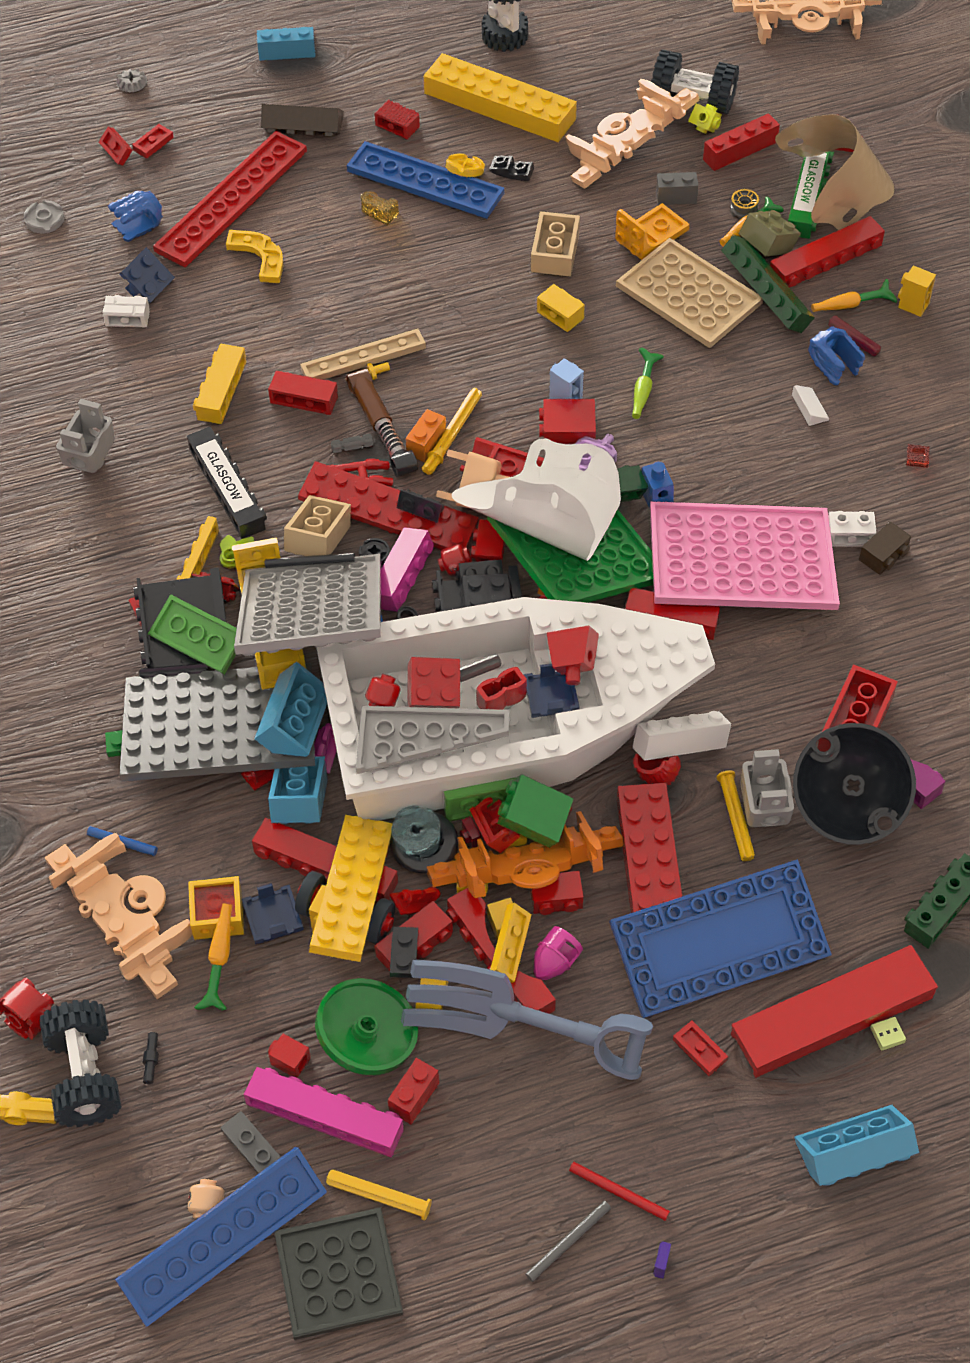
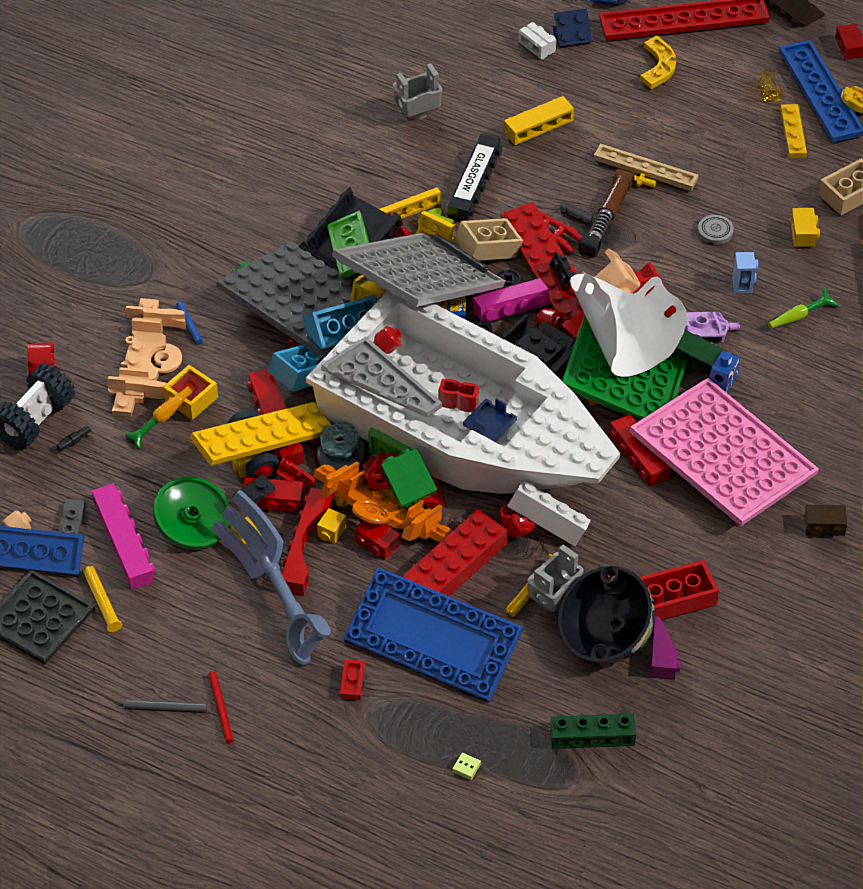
camera: 45 degrees right, 5 degrees down
(272, 913) = (214, 415): dark blue piece -> none
(289, 1055) = (139, 495): red brick -> none
(303, 392) = (582, 161): brick -> none
(413, 1090) = (177, 565): red brick -> none
(426, 434) = (623, 238): orange brick -> none
(433, 682) = (421, 358): red brick -> none
(436, 456) = (647, 248): yellow axle -> none
(444, 232) = (793, 131): none -> yellow plate
(479, 667) = (461, 372): dark grey axle -> none
(487, 367) = (715, 229): none -> light grey tile
(511, 941) = (312, 534): yellow plate -> none
(554, 955) = (333, 565): dark pink helmet -> none
(567, 420) = (721, 295): red brick -> none
(573, 651) = (520, 404): red torso -> none
(662, 1259) = (197, 755): dark purple tile -> none
(833, 1010) = (449, 726): red tile -> none
(851, 528) = (817, 490): white brick -> none
(857, 1145) = (370, 799): dark azure slope -> none

